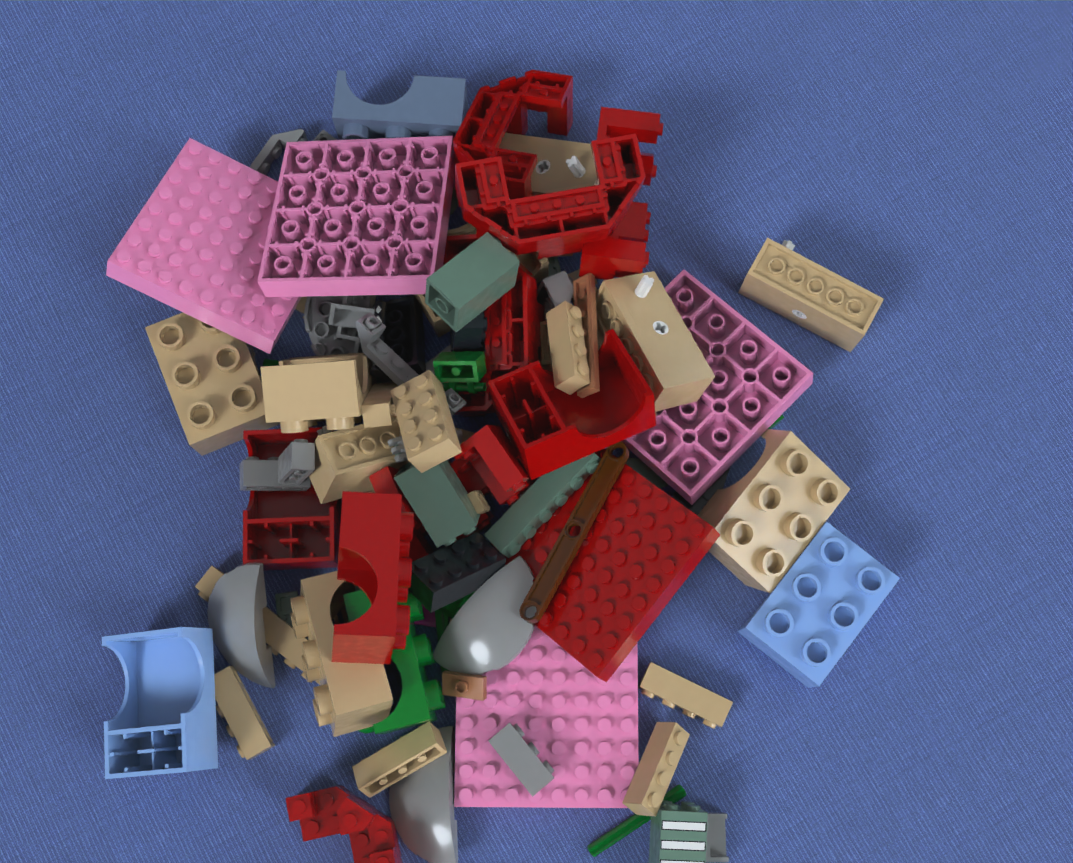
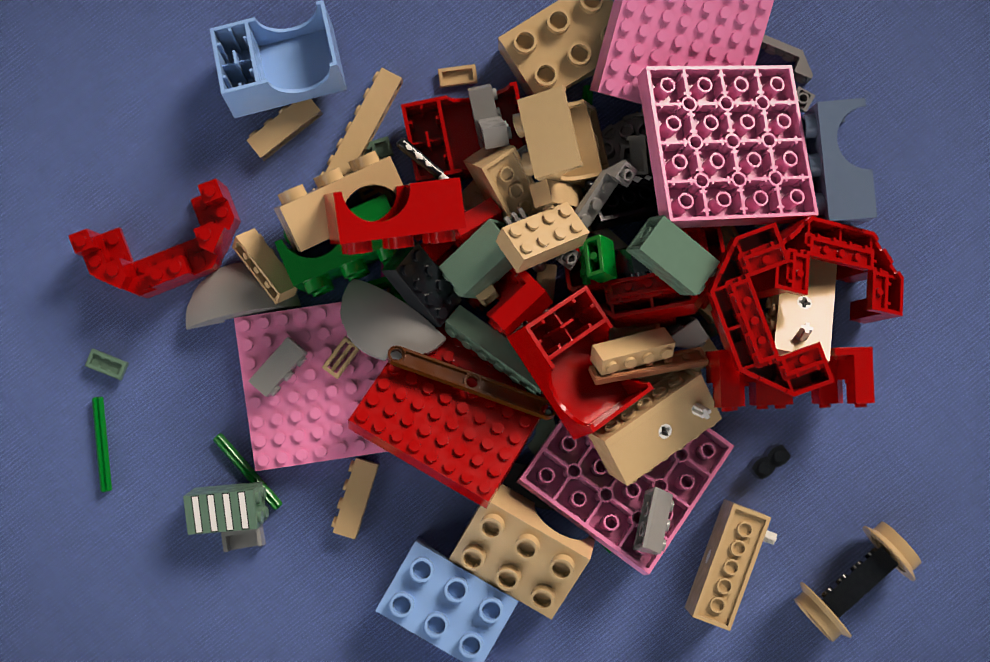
camera: 85 degrees right, 10 degrees up
(222, 504) = (457, 76): none -> tan tile
(239, 624) = (356, 109): light grey brick -> none
(310, 549) = (417, 156): none -> black piece
(464, 685) = (331, 309): nougat plate -> none
(508, 669) = (347, 362): none -> tan tile
(656, 769) = (289, 481): tan brick -> none
(707, 242) = (773, 457): none -> black brick
(756, 359) = (653, 521): none -> light grey slope
(819, 133) = (889, 553): none -> brick

